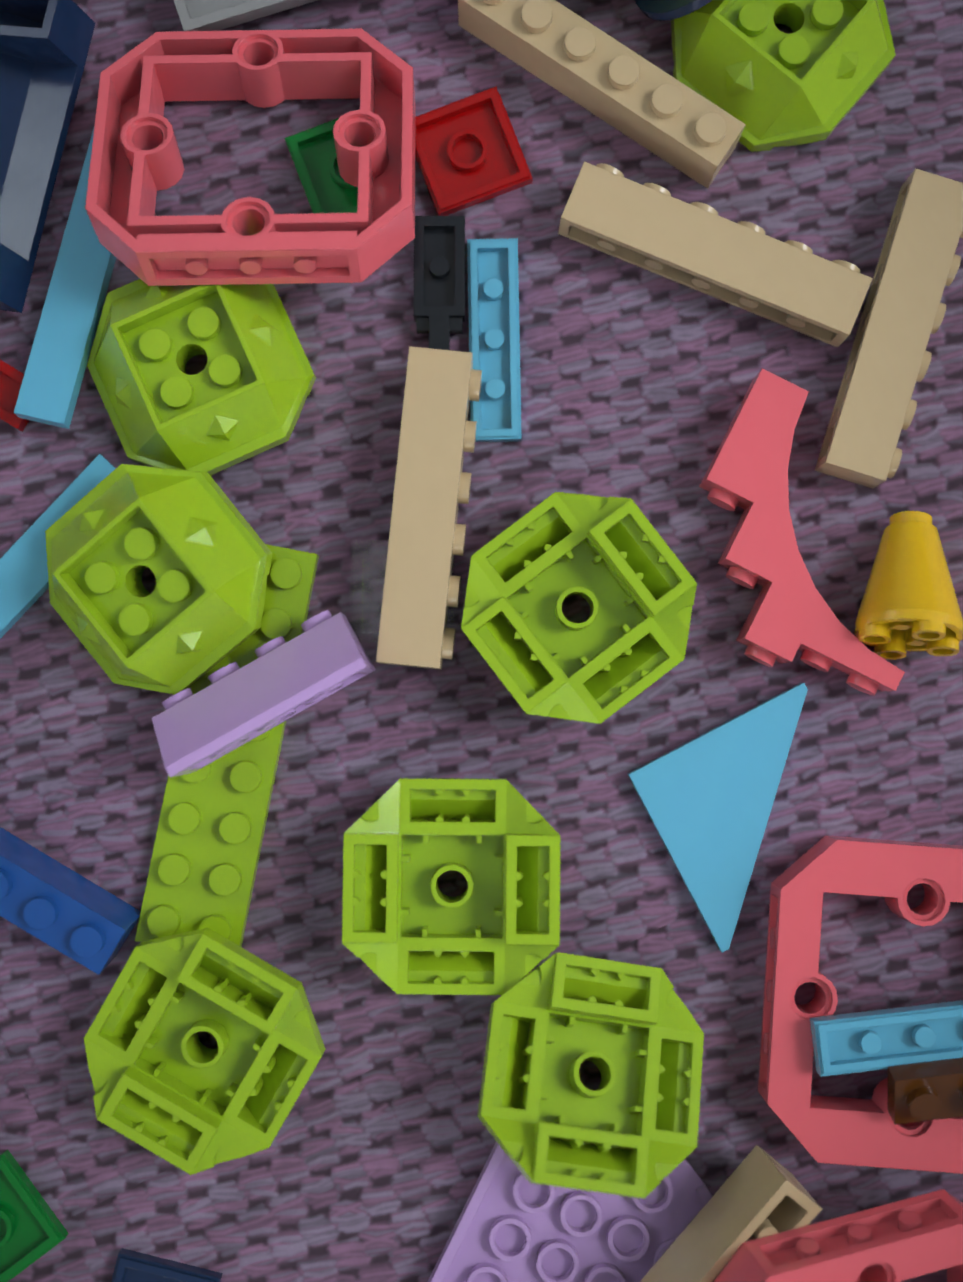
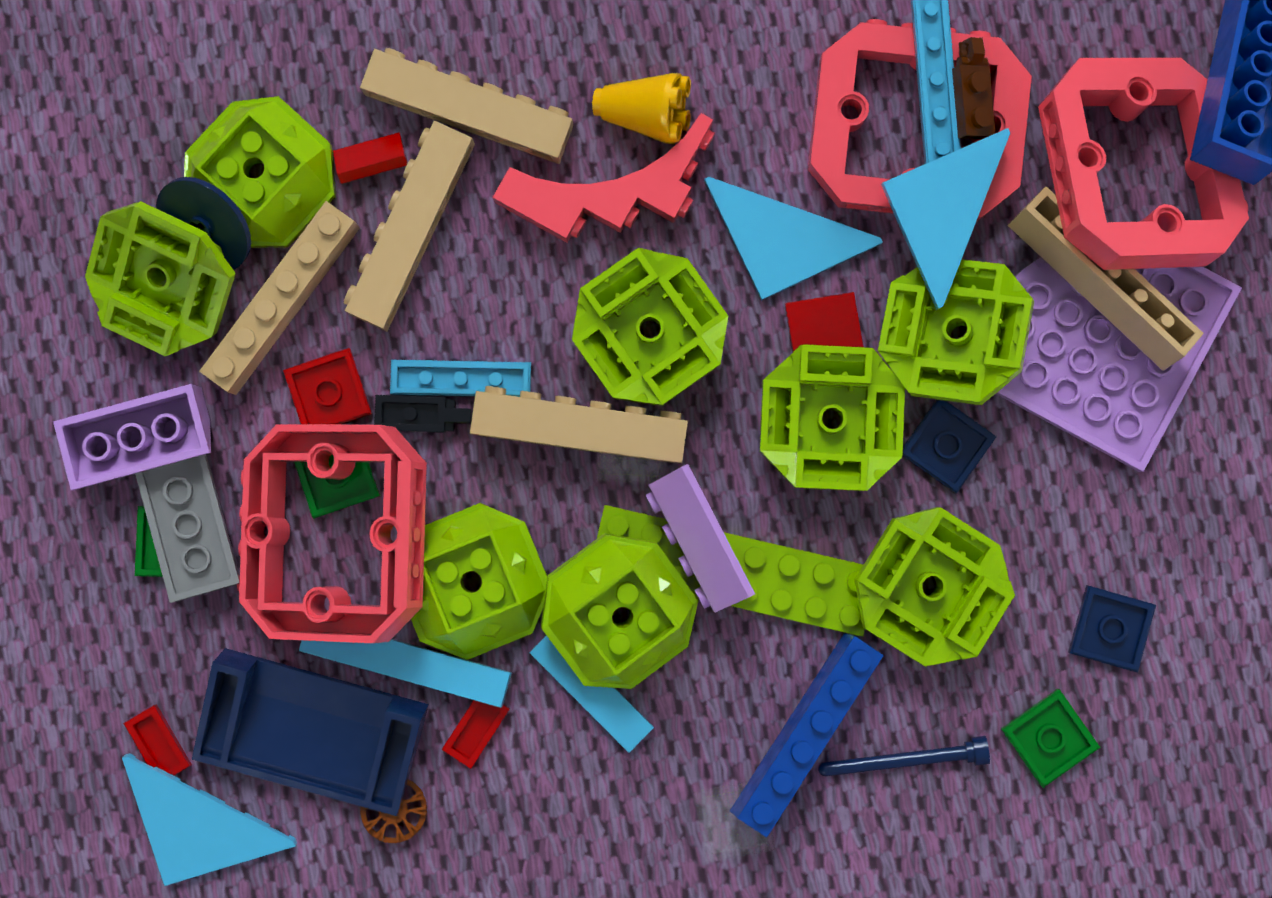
camera: 90 degrees left, 0 degrees up
(422, 1059) = (947, 445): none -> dark blue tile
(597, 869) = (824, 321): none -> red tile
(780, 1043) = (940, 208): none -> medium azure tile
(810, 194) = (370, 158): none -> red tile

